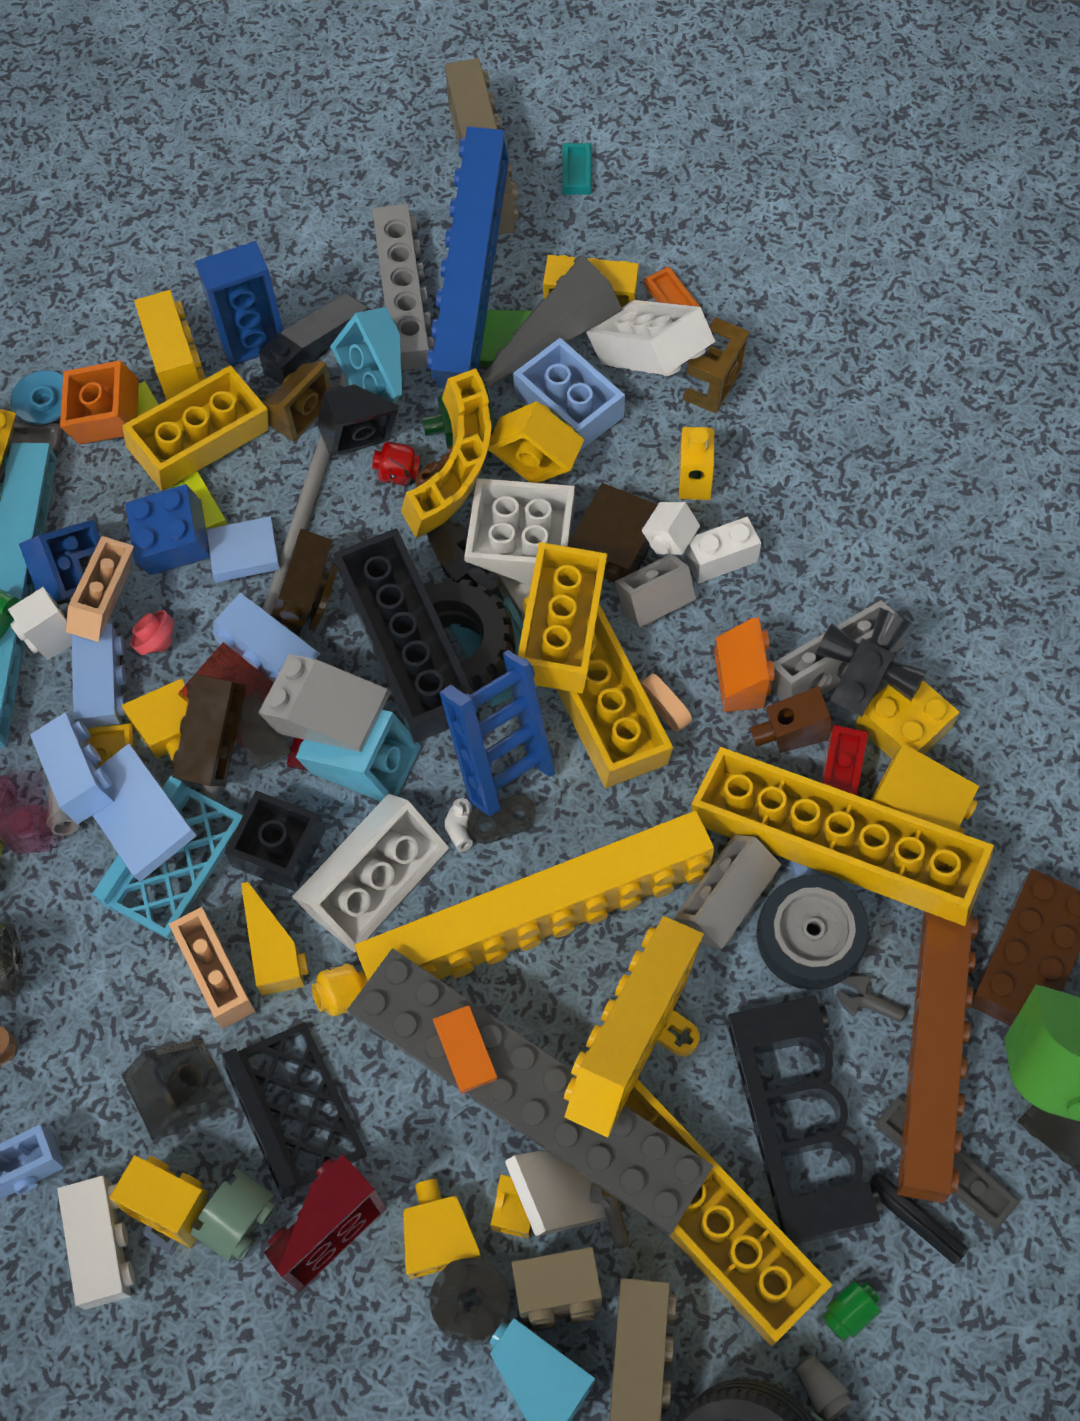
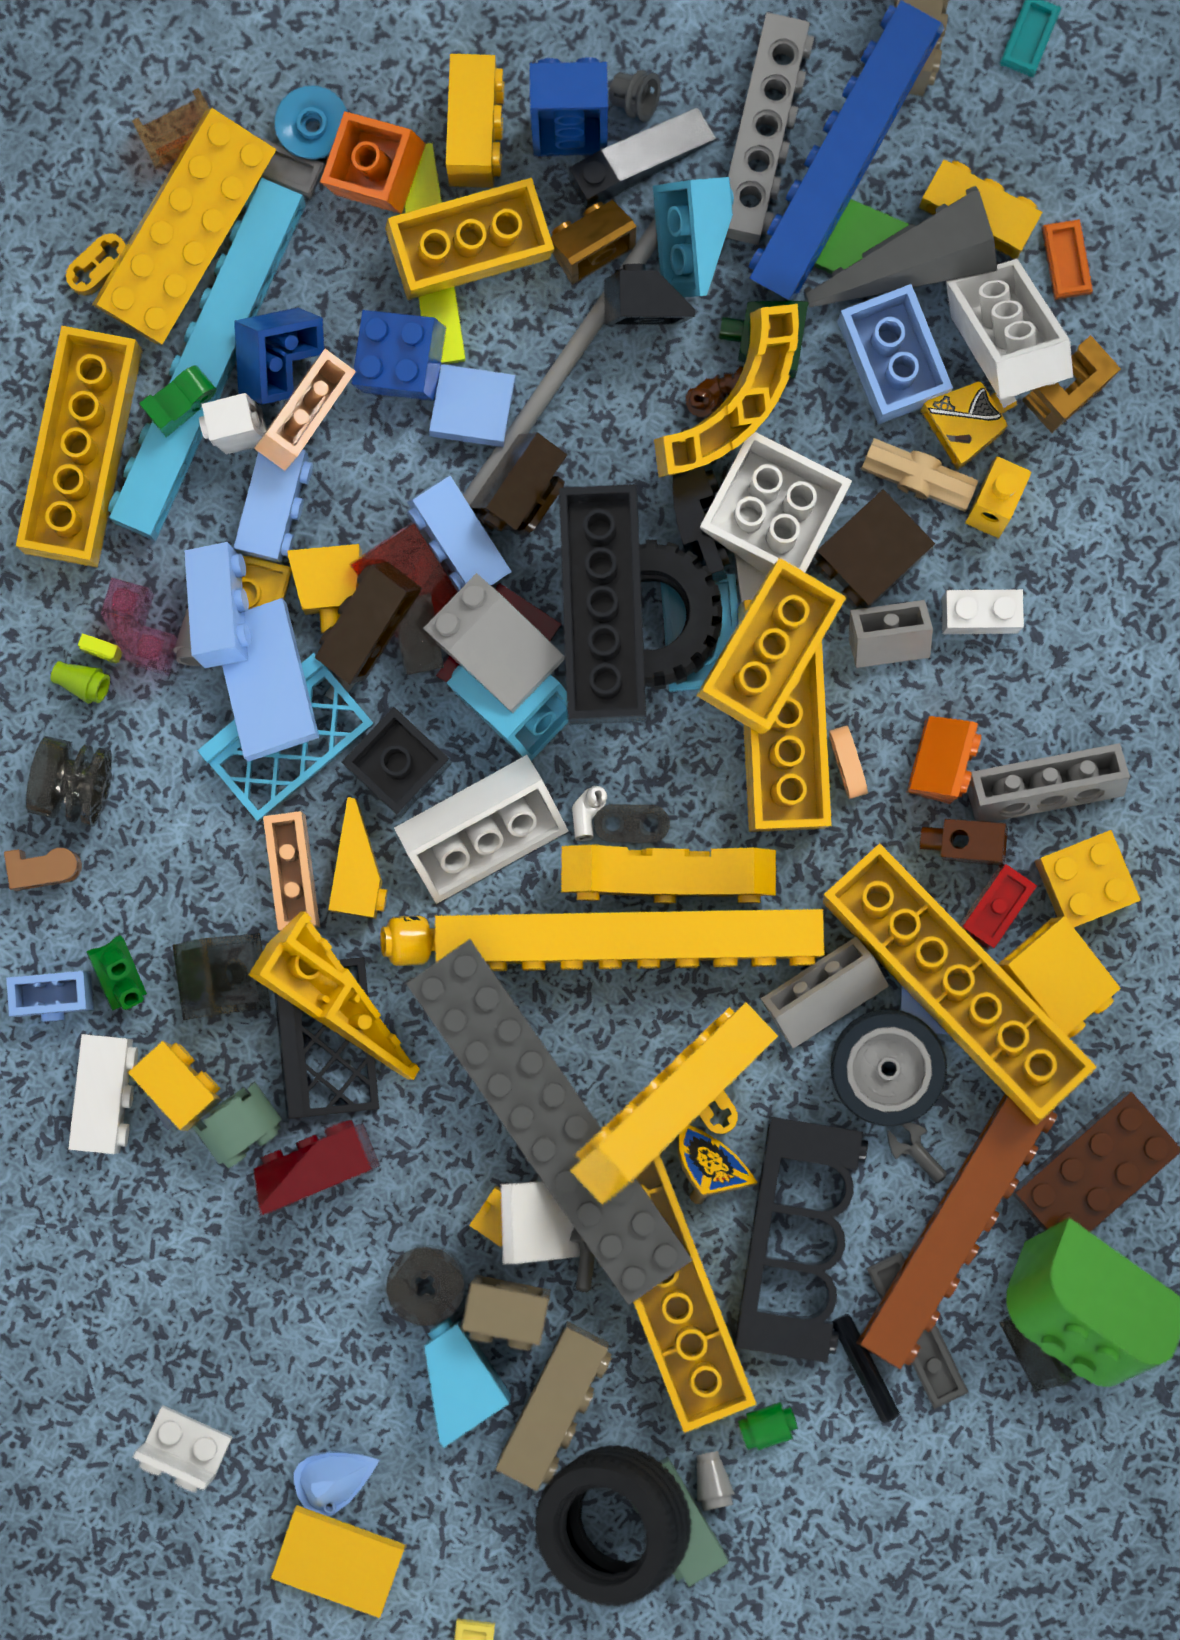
camera: 20 degrees right, 20 degrees up
(75, 1120) = (117, 974): none -> green hips
(153, 633) = (345, 472): coral plate -> none
(263, 1052) = (309, 976): none -> yellow wedge
(300, 301) = (635, 93): none -> dark grey piece
(396, 463) = (673, 364): red head -> none
(435, 1232) = (418, 1209): yellow torso -> none
(464, 1049) = (502, 1068): orange tile -> none
(469, 733) = (626, 748): blue fence -> none
(495, 859) = (668, 873): none -> yellow brick
(535, 443) = (831, 410): yellow brick -> none
(627, 473) = (919, 474): none -> tan piece
(646, 422) = (967, 420): none -> yellow torso
(671, 528) = (932, 575): white brick -> none
(692, 1084) = (710, 1165): none -> shield
(870, 663) = (1070, 819): black brick -> none

